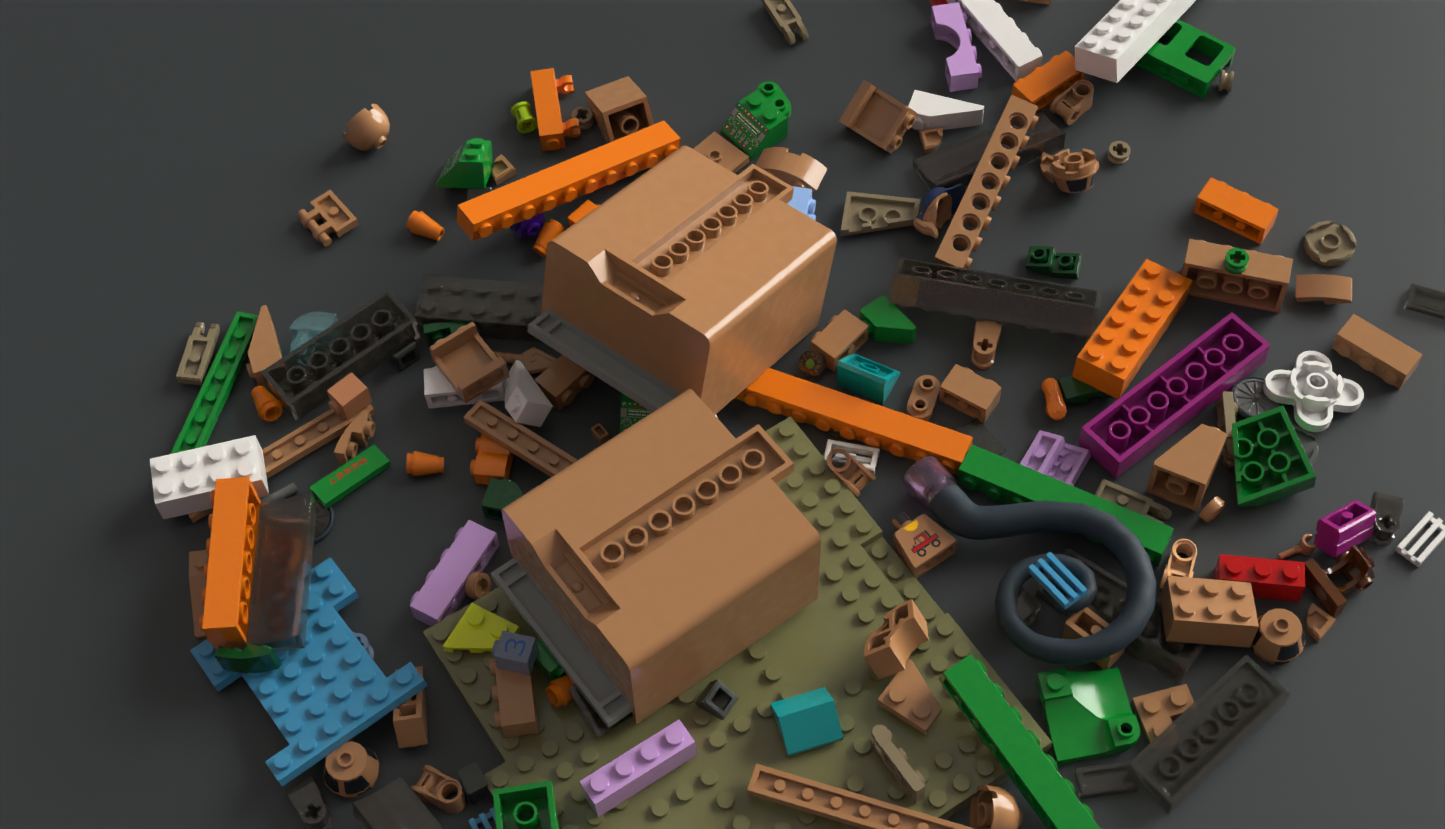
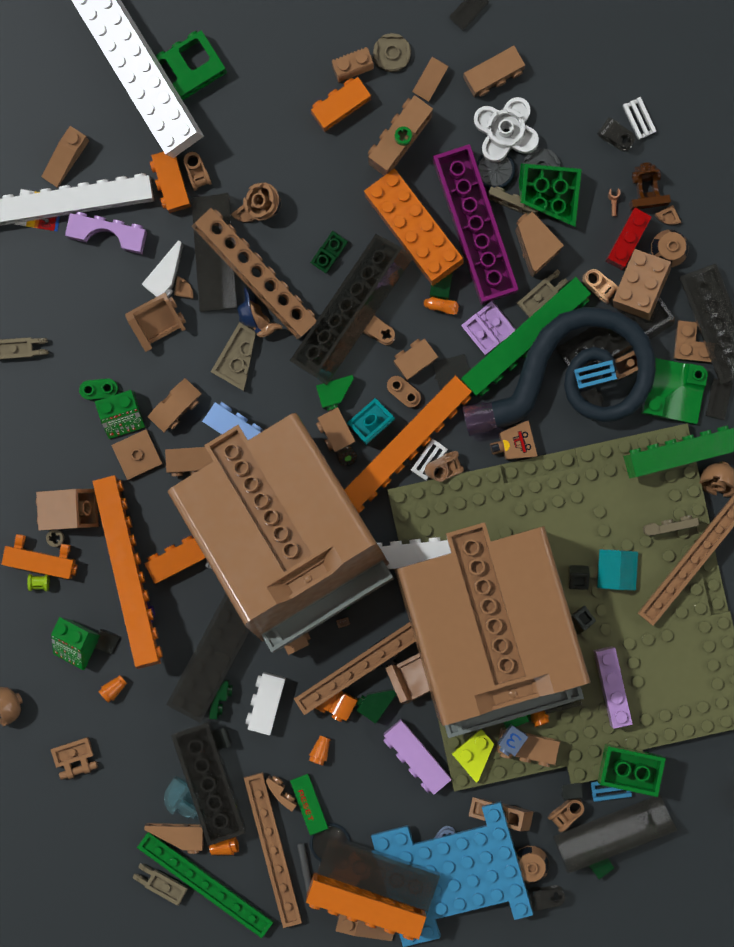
camera: 70 degrees left, 30 degrees up
(186, 478) = (280, 903): white brick -> none
(251, 660) = (438, 909): dark green slope -> none
(348, 396) = (251, 789): nougat brick -> none
(468, 362) = (259, 697): medium nougat panel -> none
(477, 585) = (431, 743): medium nougat tile -> none
(502, 170) = (79, 615): medium nougat tile -> none
(524, 397) = (299, 667): white slope -> none
(533, 359) = (260, 651): medium nougat piece -> none
(548, 232) = (160, 602): orange cone -> none
(774, 675) = (579, 577): none -> pearl dark grey slope
(895, 639) = (591, 493): medium nougat brick -> none
(911, 699) = (628, 498): medium nougat wing -> none
(1112, 153) = (250, 153): dark tan bush -> none
(1212, 509) = (567, 241): medium nougat tile -> none
(1226, 81) = (223, 50): dark tan bush -> none
(1294, 206) = (352, 64): none -> medium nougat brick
(1344, 528) = (619, 167): magenta brick -> none

